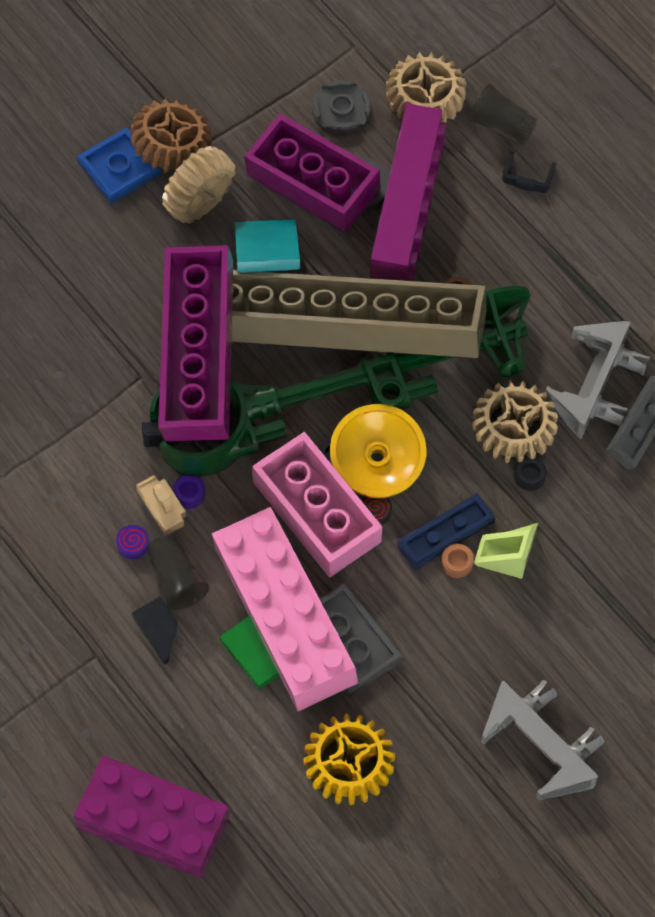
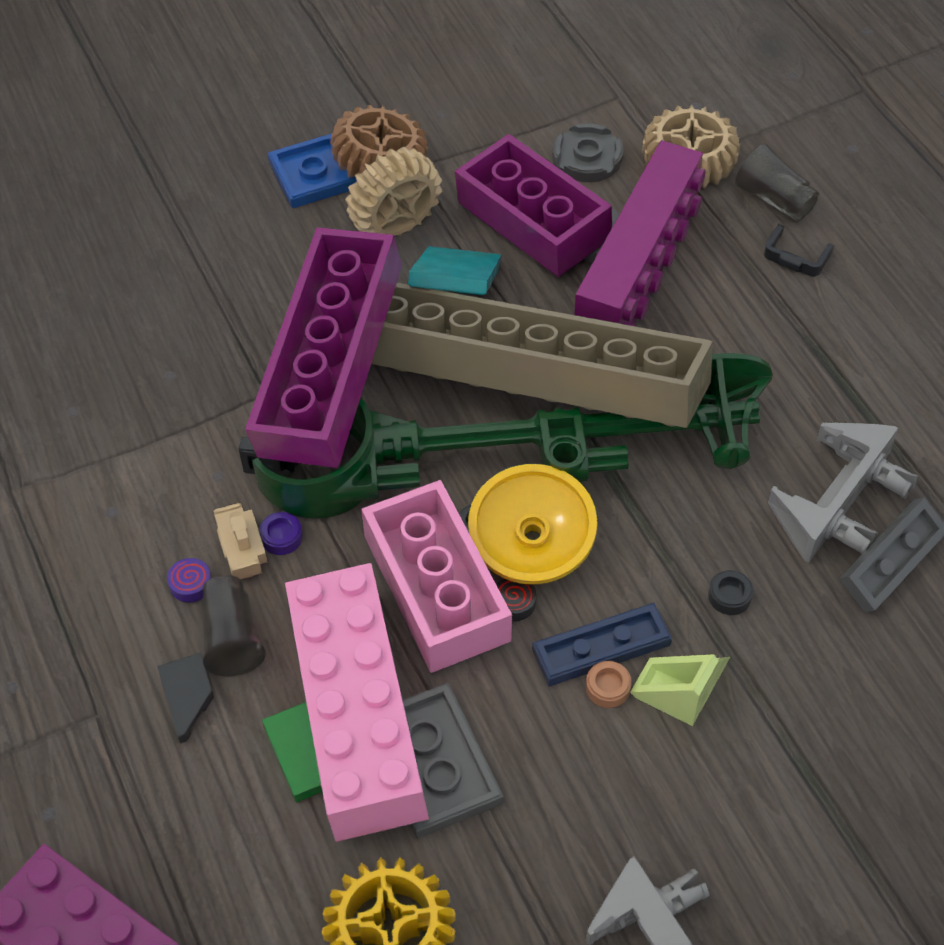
camera: 15 degrees right, 10 degrees down
(523, 409) = (713, 533): tan gear -> none

